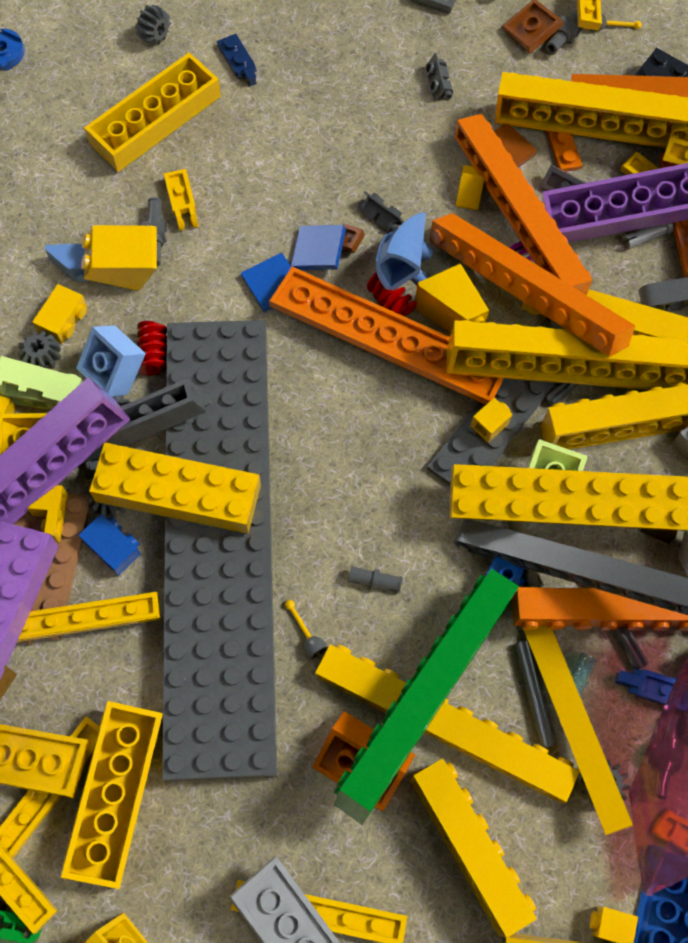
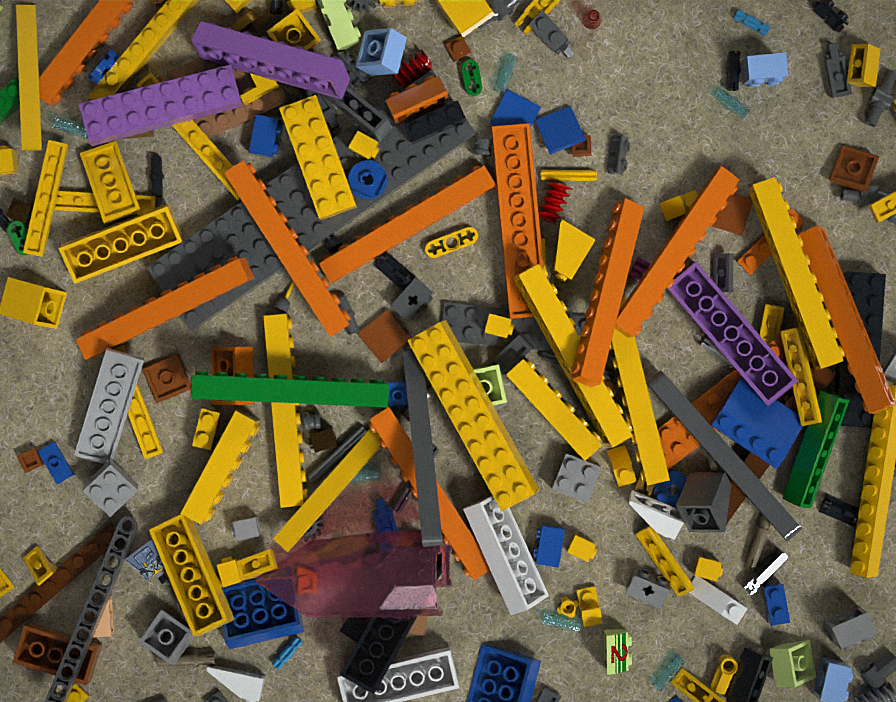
camera: 60 degrees right, 20 degrees up
(64, 700) = (156, 176): none -> black pin
(164, 295) = (458, 48): none -> dark orange plate
(188, 344) = (417, 99): none -> orange slope
(199, 432) = (364, 146): none -> yellow brick
(205, 295) = (476, 76): none -> green beam
(215, 200) = (551, 34): none -> dark grey hinge
(223, 265) = (505, 73): none -> clear light blue pin
(225, 345) = (435, 122): none -> black brick
(227, 156) = (590, 23): none -> clear red cone
(227, 791) = (165, 308): none -> orange brick
(243, 439) = (363, 169): none -> blue plate
(255, 587) = (287, 248): none -> orange brick
(281, 543) = (331, 242): none -> black hinge
(284, 329) = (482, 147): none -> dark grey wheel
(314, 457) = (407, 224): none -> orange brick
(315, 848) = (167, 378): none -> dark orange tile
(331, 35) = (751, 22): none -> dark azure axle
(358, 498) = (394, 271): none -> black hinge
(364, 275) = (568, 175): none -> yellow axle
(367, 72) = (733, 71): none -> black pin
(368, 438) = (466, 242): none -> yellow beam
(386, 40) = (764, 69): none -> light blue brick
(398, 90) = (731, 103): none -> clear light blue pin
(401, 510) = (415, 288): none -> dark grey brick
(402, 253) = (583, 192): medium blue piece -> none
(411, 835) = (207, 428): none -> yellow brick
(425, 554) = (384, 336): none -> dark orange tile
(437, 72) = (767, 120): dark grey hinge -> none
(477, 697) = (312, 421): none -> dark grey wheel
(508, 698) = (323, 440): none -> dark brown brick
(531, 423) = (512, 354): none -> dark grey hinge
(567, 867) = (246, 528): none -> light grey brick
(625, 881) = (256, 564): none -> yellow slope

